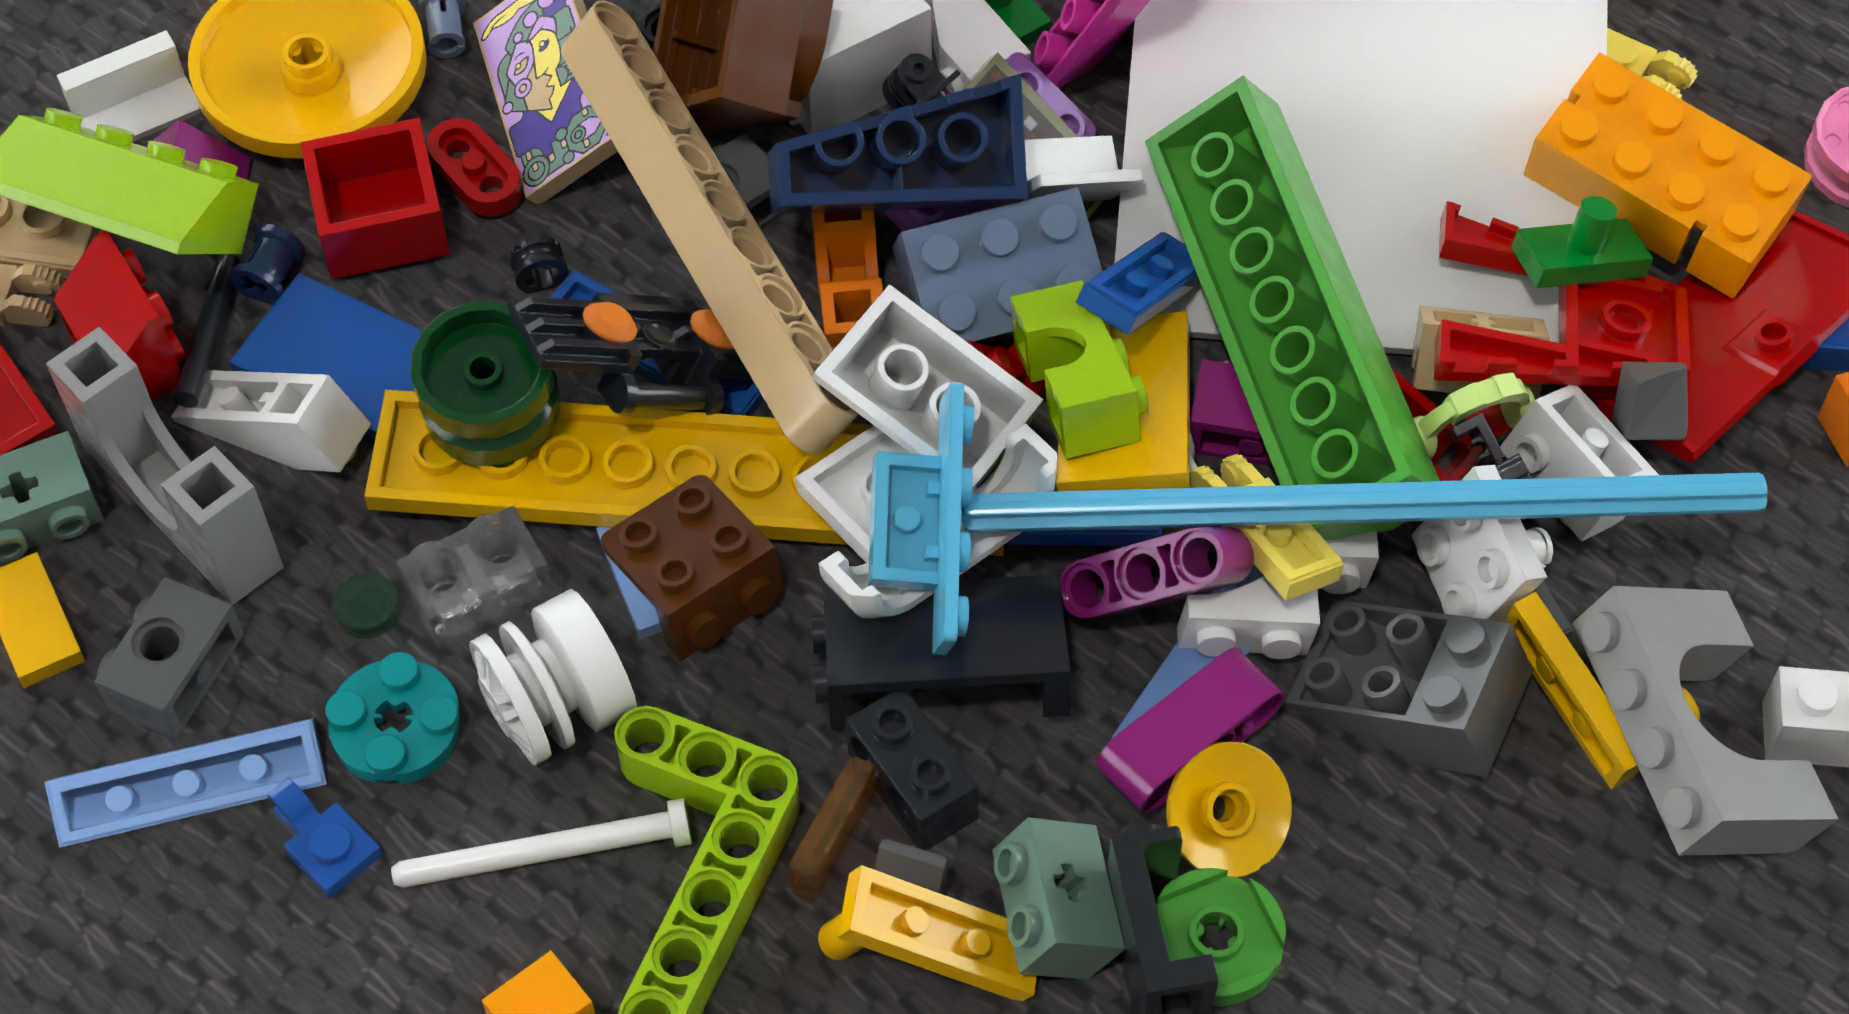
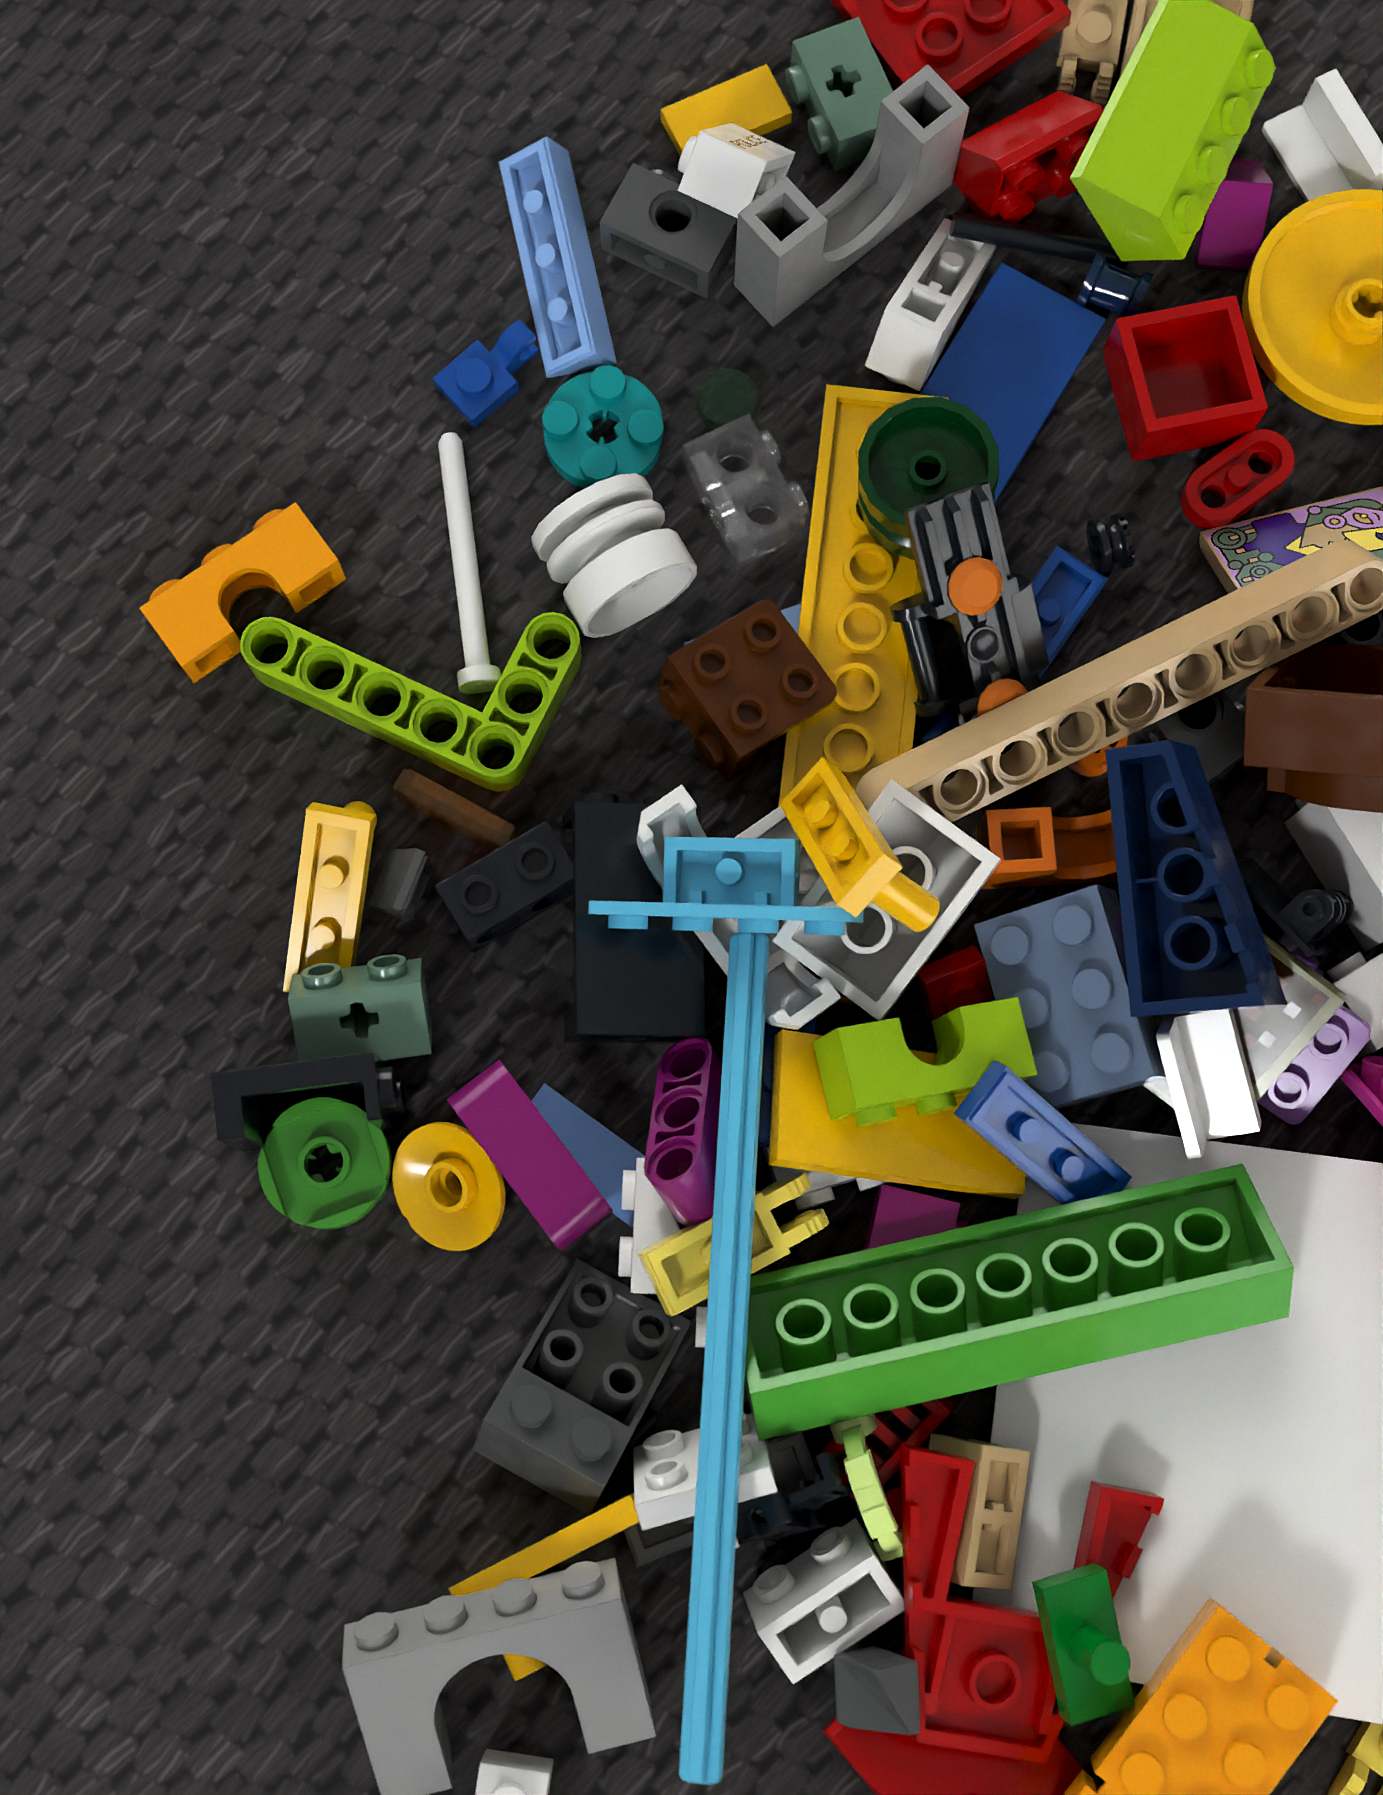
camera: 90 degrees right, 20 degrees up
(116, 579) = (731, 167): none -> white brick
(876, 408) = (852, 851): none -> yellow piece

